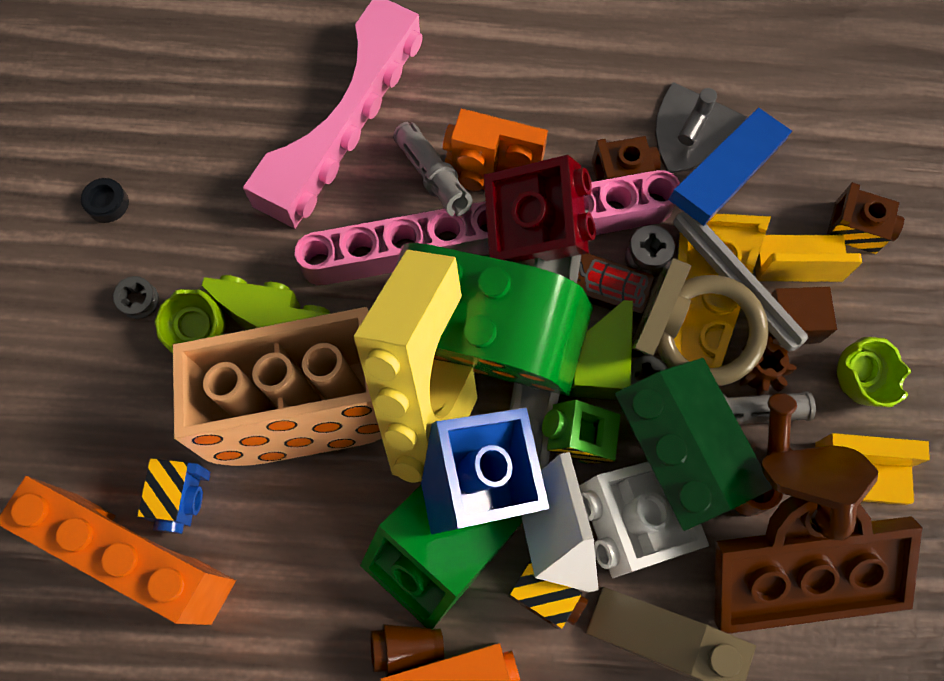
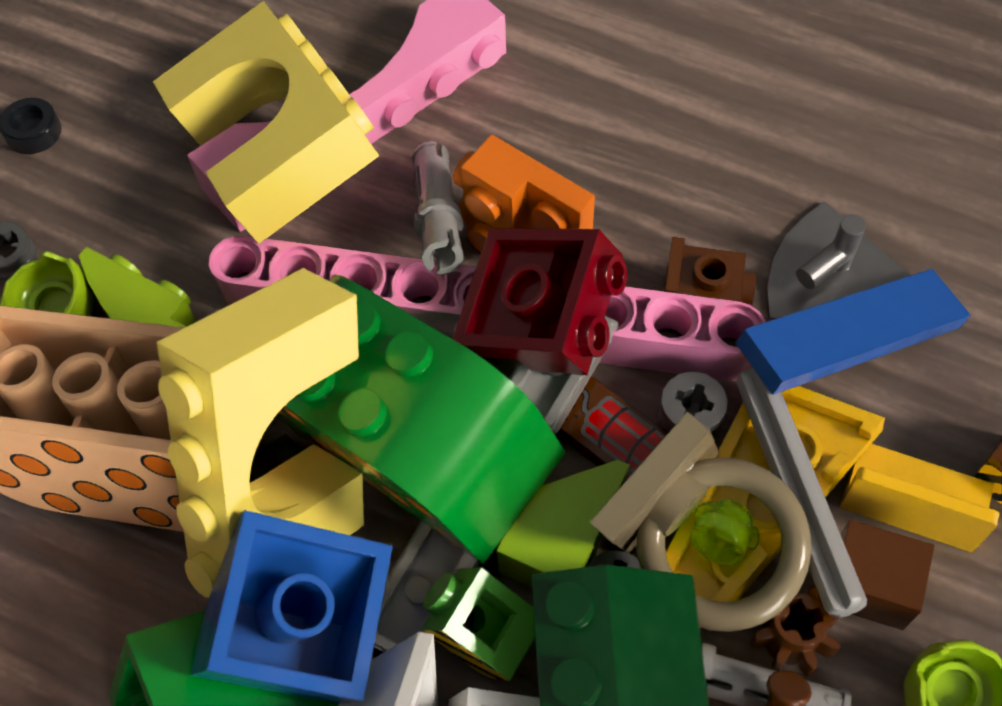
camera: 25 degrees right, 10 degrees down
(337, 149) = (302, 151): none -> light yellow arch
(706, 323) = (724, 531): none -> clear neon green plate

